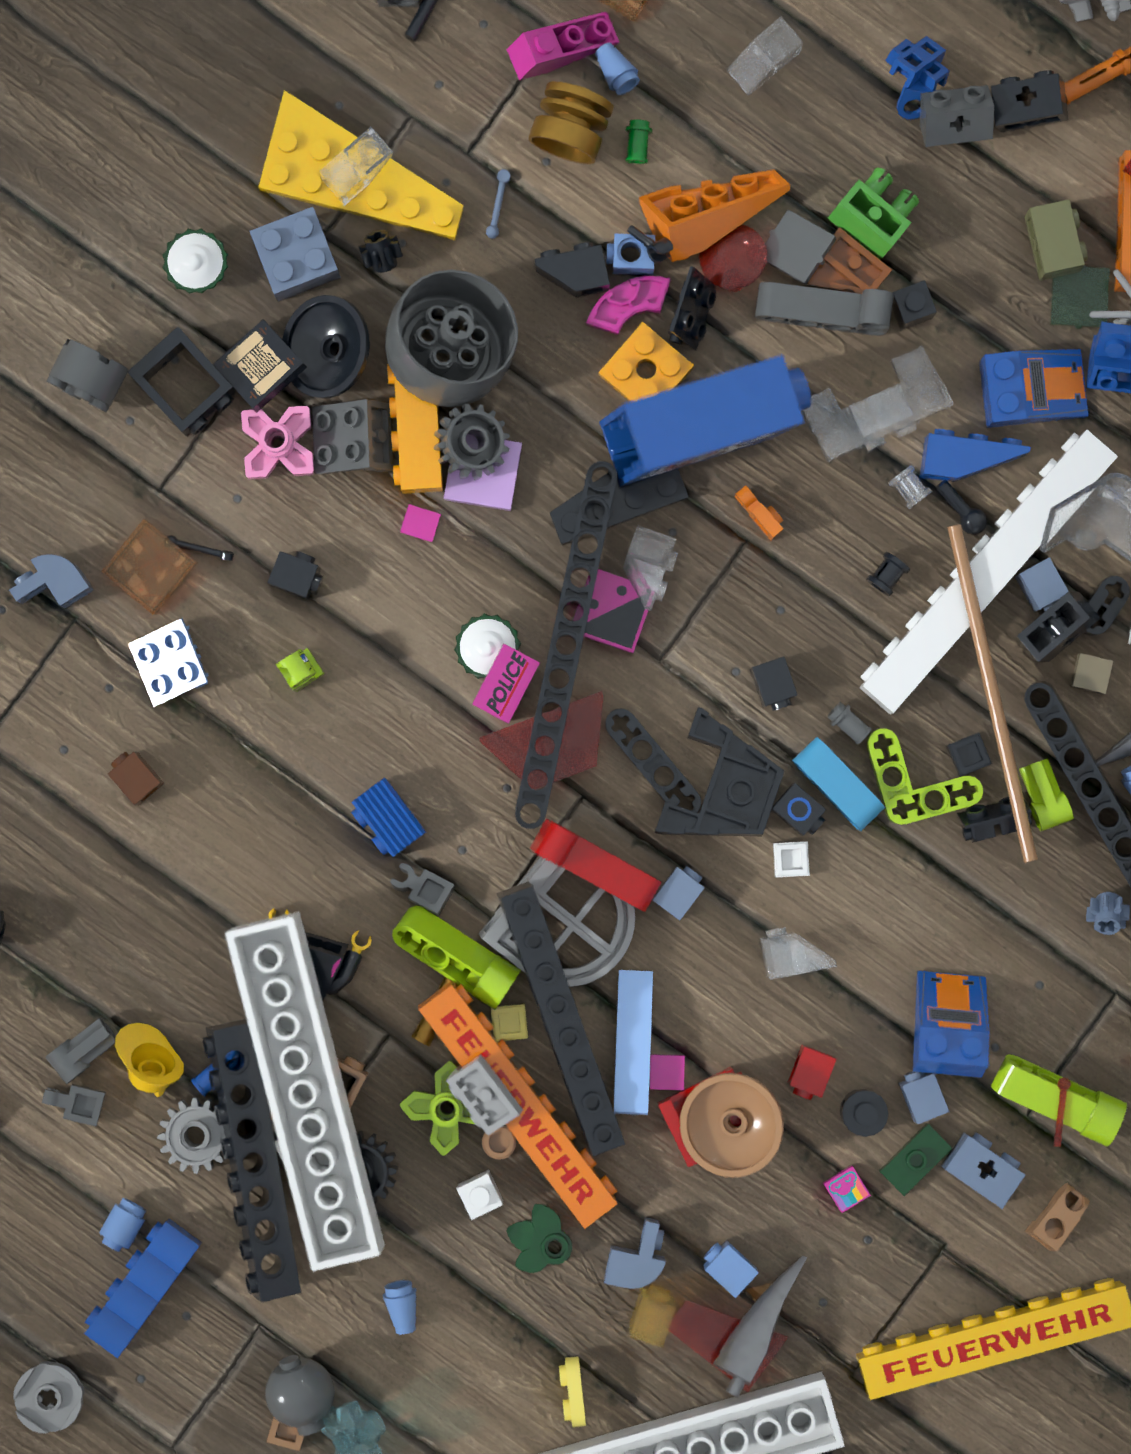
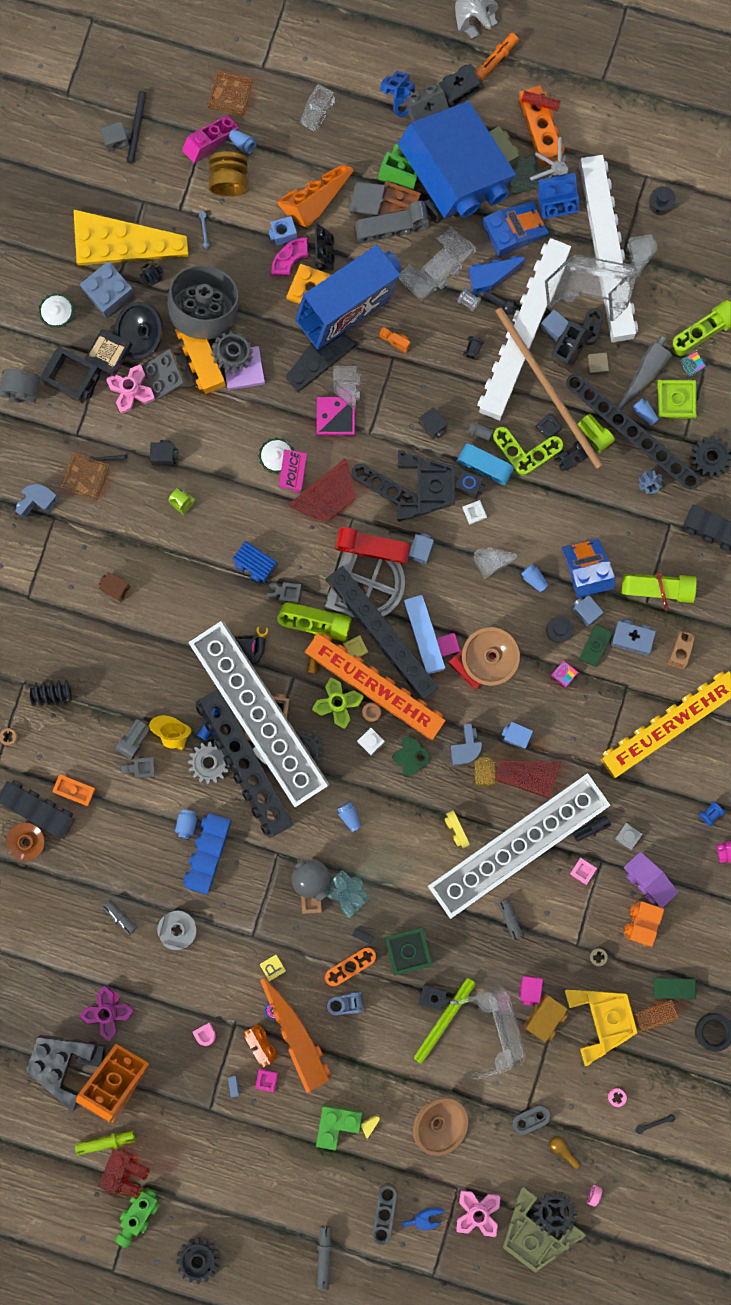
camera: 10 degrees left, 5 degrees down
(168, 662) = (111, 521): hinge -> none
(356, 166) = (123, 232): clear slope -> none
(420, 523) = (219, 405): dark pink piece -> none
(483, 1095) = (354, 684): light grey bracket -> none
(565, 628) = (317, 430): black beam -> none
(576, 271) = (257, 249): black slope -> none
(638, 136) = (266, 174): green pin -> none
(656, 250) = (294, 222): black hand -> none
(735, 259) = (337, 215): clear red dish -> none
(753, 1334) = (541, 768): flat silver piece -> none
(811, 1072) = (524, 618): red brick -> none
(853, 1008) = (534, 577): none -> medium blue cone
(975, 240) = (457, 160): none -> blue brick

